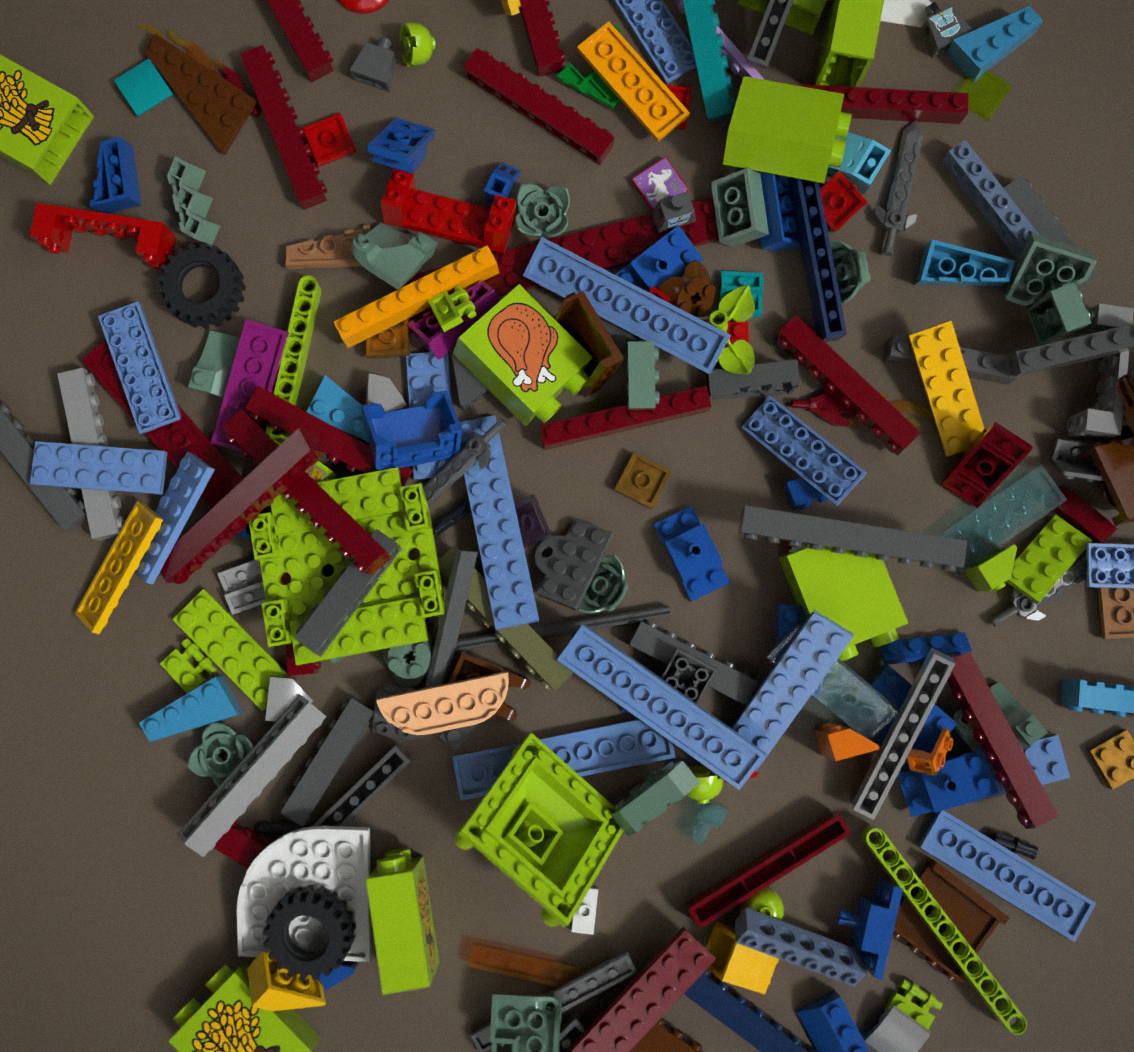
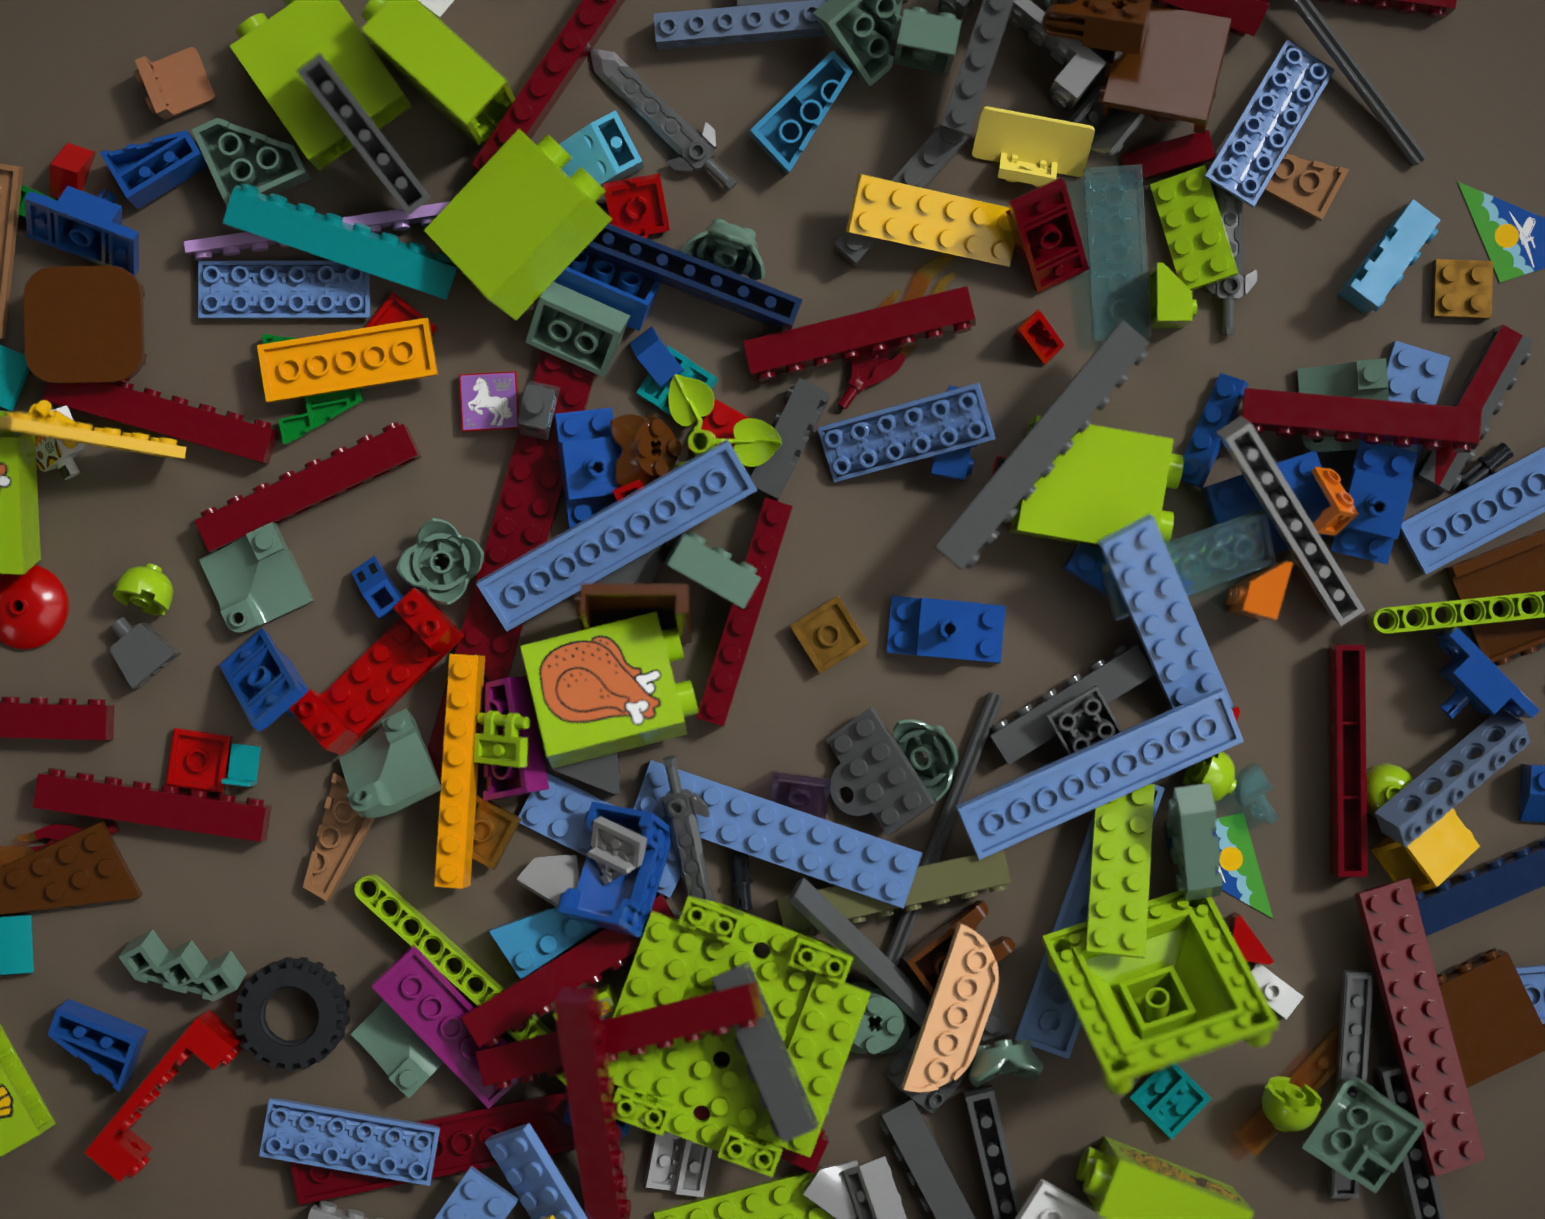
camera: 55 degrees left, 5 degrees up
(342, 167) = (243, 765): none -> teal bracket
(424, 422) = (615, 849): none -> light grey slope
(434, 756) = (1005, 1059): none -> sand green brick
(463, 108) = (256, 579): none -> sand green slope
(473, 885) = (1170, 1099): none -> teal slope
(515, 968) = (1289, 1105): none -> lime cylinder
(602, 760) = (1120, 875): none -> lime plate
(607, 874) = (1247, 941): none -> red slope
(654, 837) = (1238, 863): none -> sticker
(751, 269) = (656, 356): none -> blue slope
(915, 500) = (1039, 337): none -> red slope
(1035, 421) = (1032, 146): none -> light yellow bracket
(1072, 812) = (1481, 390): none -> brick

